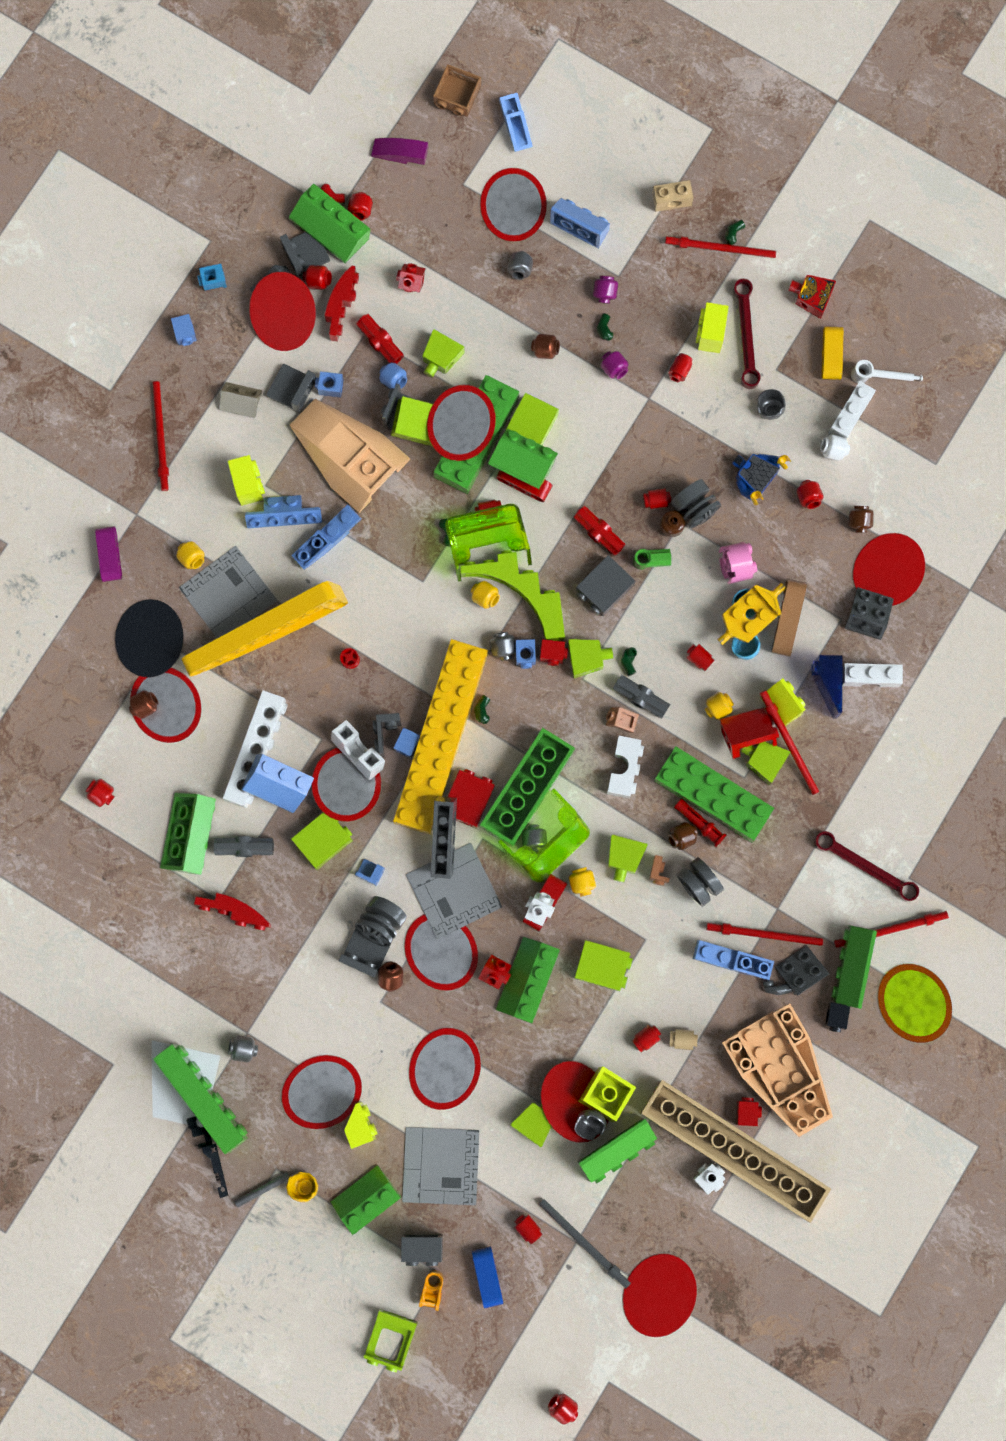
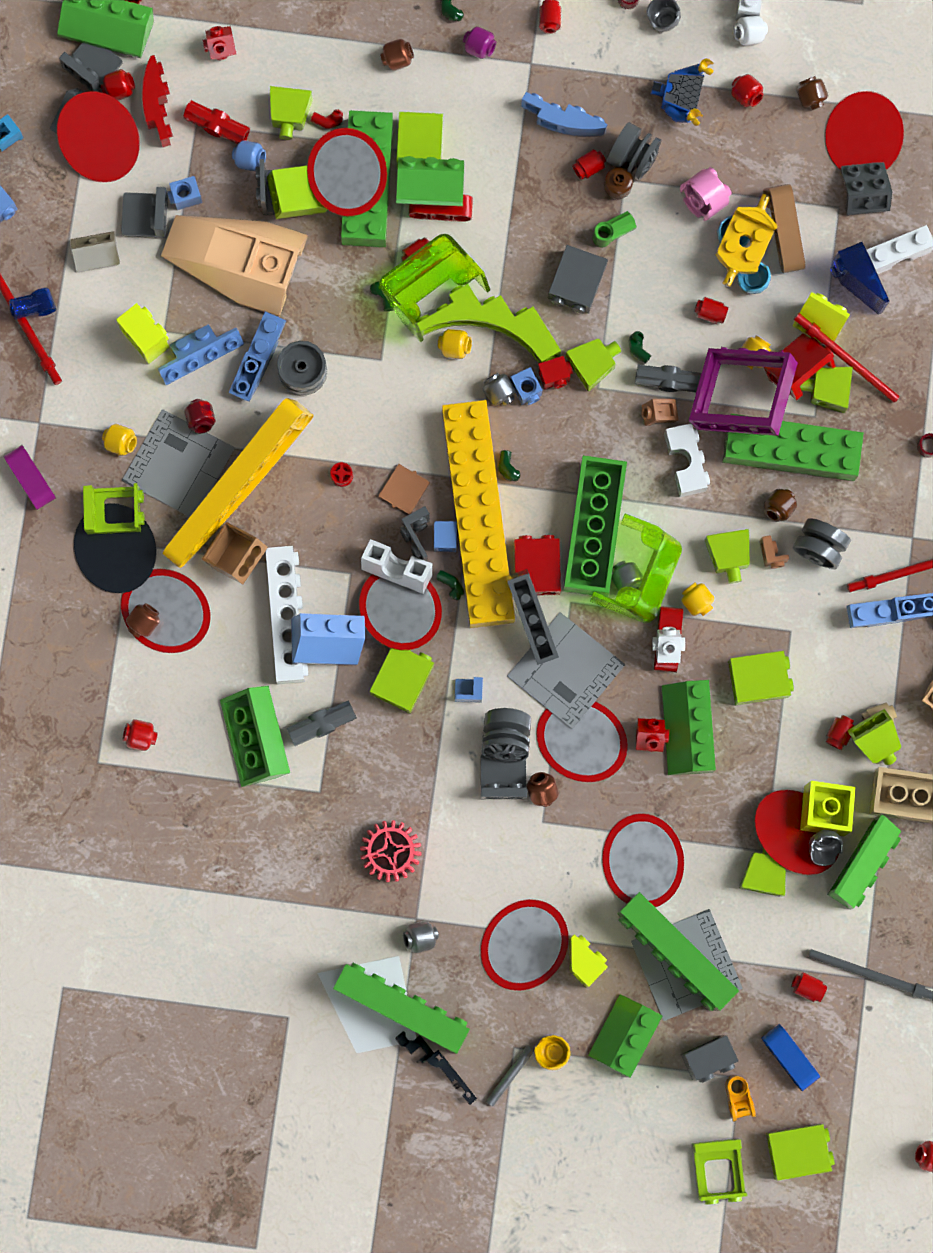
camera: 30 degrees left, 0 degrees up
(146, 601) = (95, 509): none -> lime window
(178, 420) = (39, 303): none -> clear blue piece
(237, 683) = (234, 553): none -> medium nougat piece
(241, 912) = (353, 794): red slope -> none
(252, 962) = (407, 847): none -> coral gear
(260, 564) = (200, 416): none -> dark red head
(358, 572) = (299, 355): none -> dark grey wheel
(393, 691) = (404, 489): none -> nougat piece
(396, 781) = (453, 583): none -> dark green arm
(435, 1153) = (677, 952): none -> bright green brick
(460, 1355) = (800, 1151): none -> lime brick
(468, 376) = (329, 121): none -> red arm
(599, 531) = (544, 224): red piece -> none
(658, 458) = (571, 121): none -> medium blue slope
(671, 1056) = (877, 738): none -> lime torso
(684, 696) = (715, 357): none -> magenta window
(707, 828) = (801, 486): red pin -> none

